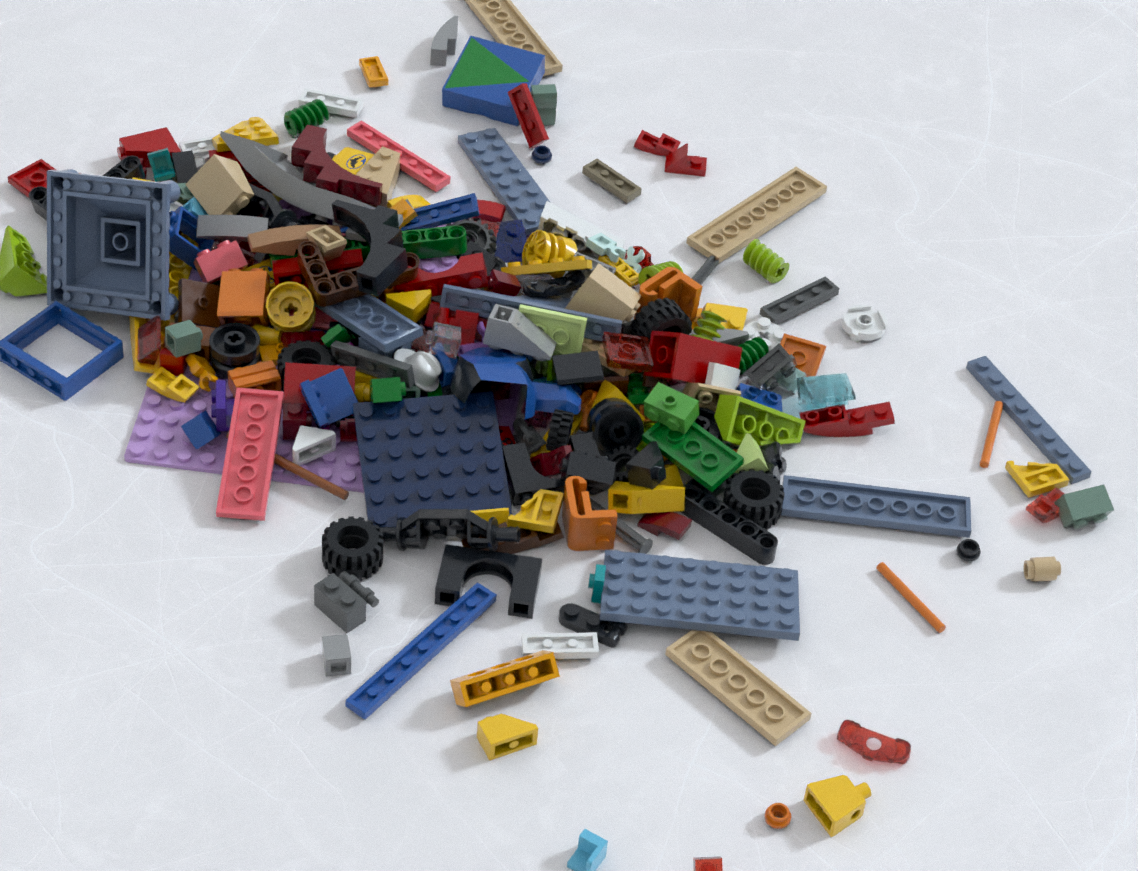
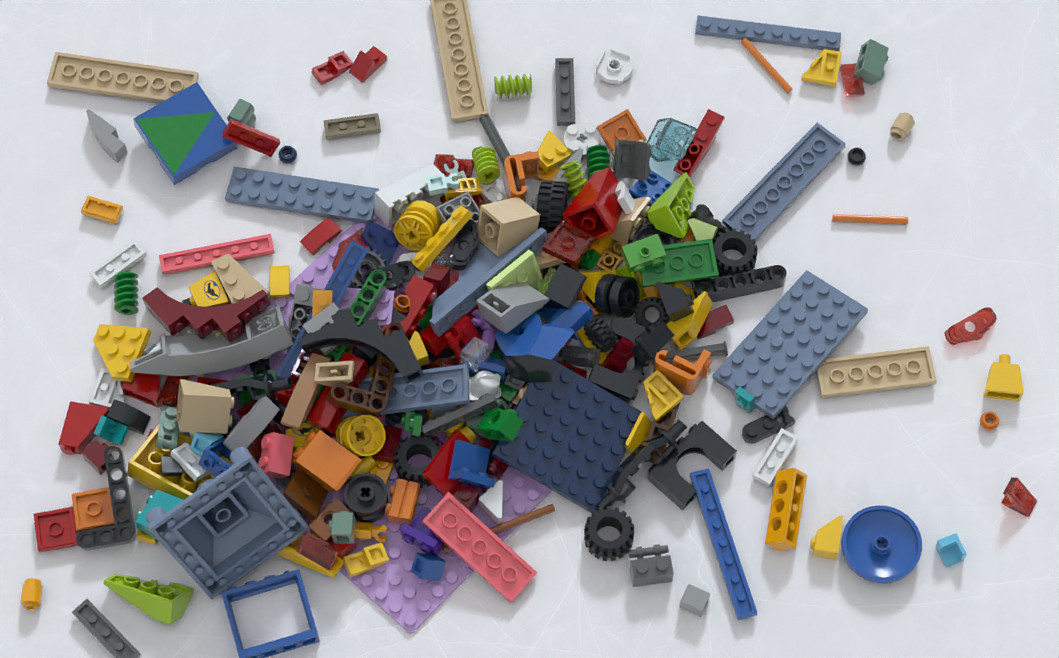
camera: 50 degrees left, 20 degrees up
(536, 782) = (881, 544): none -> blue dish

